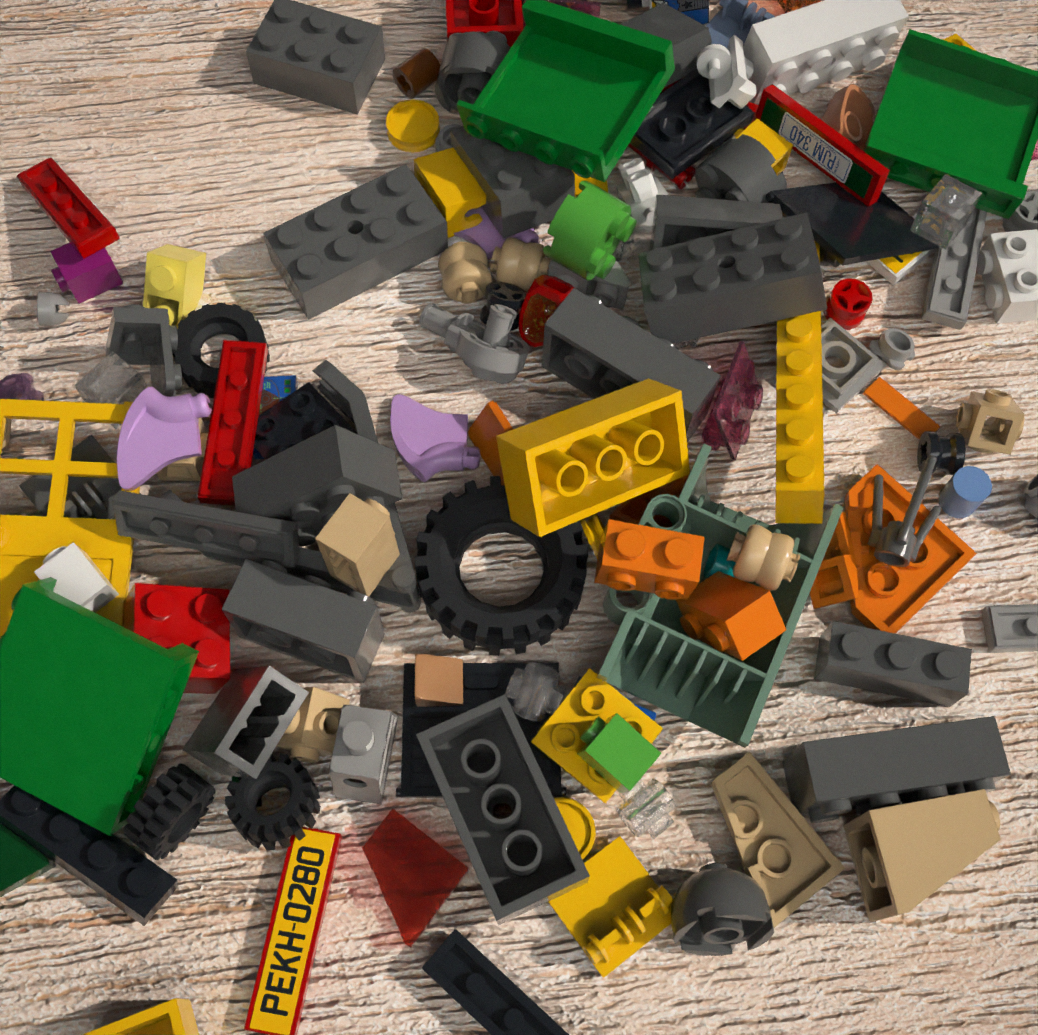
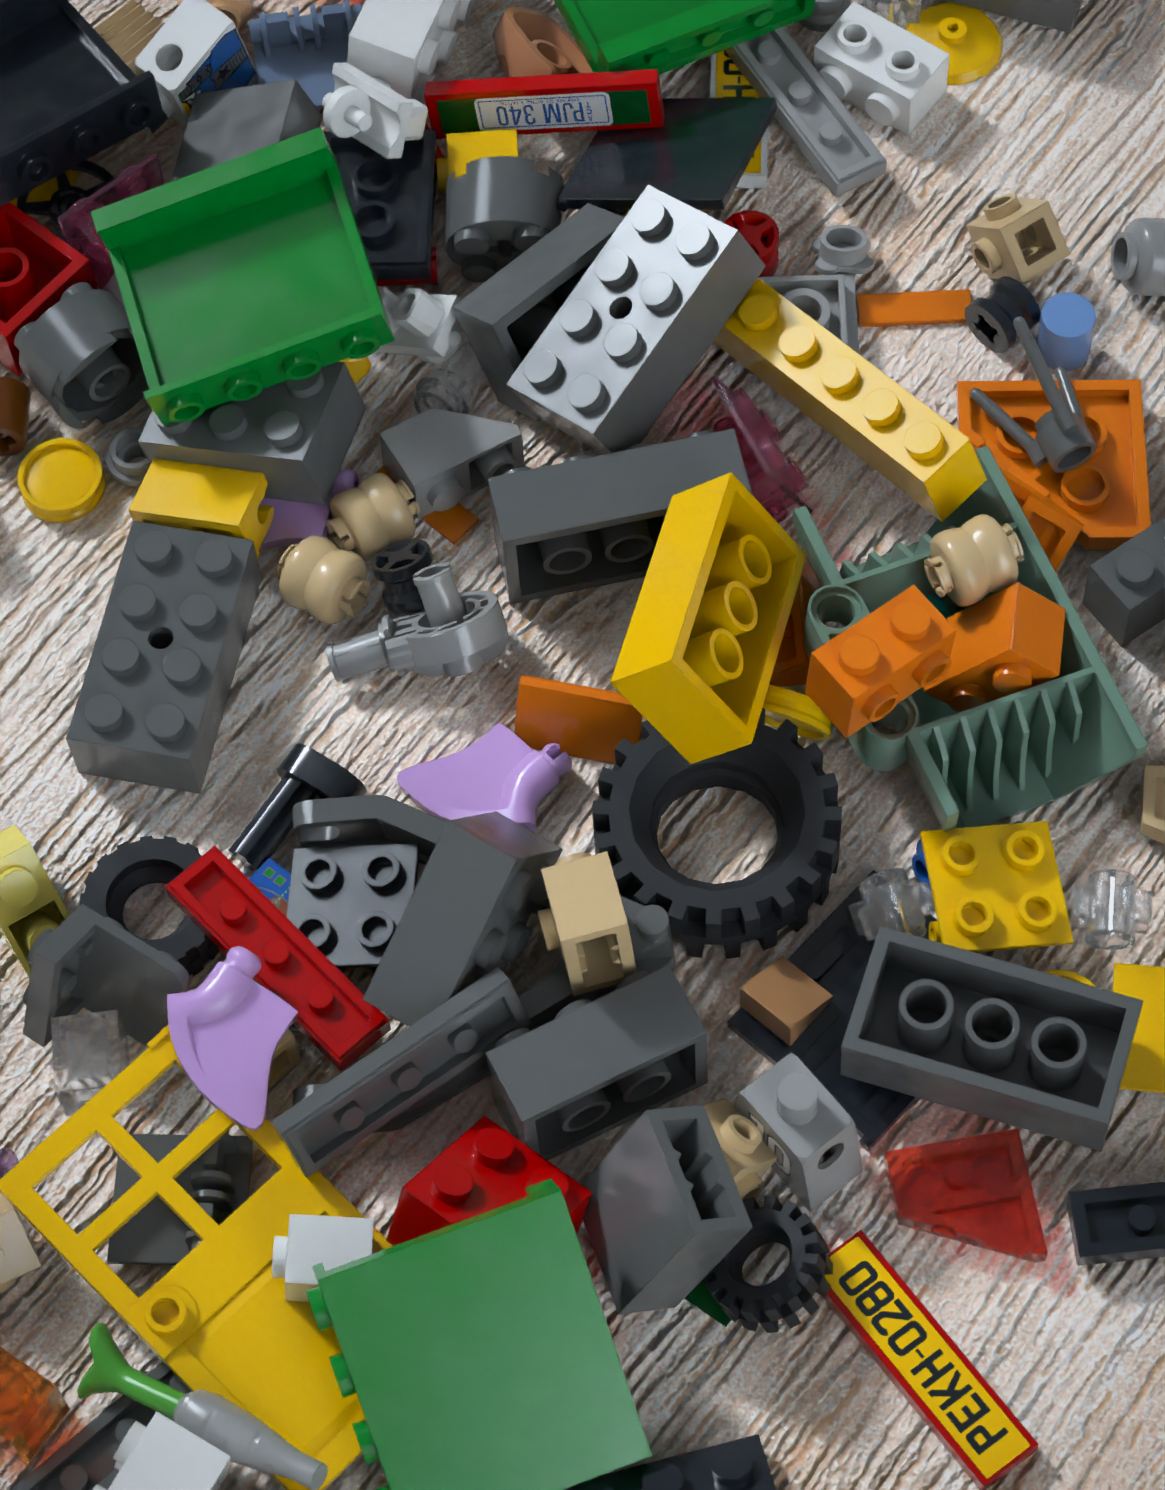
camera: 40 degrees left, 5 degrees down
(169, 811) = (683, 1372): black tyre -> none
(351, 356) = (304, 777): none -> black piece
(539, 305) = (462, 535): rock -> none
(589, 231) = (437, 407): bright green brick -> none
(617, 752) = (1040, 873): bright green brick -> none
(945, 211) = (753, 63): clear brick -> none

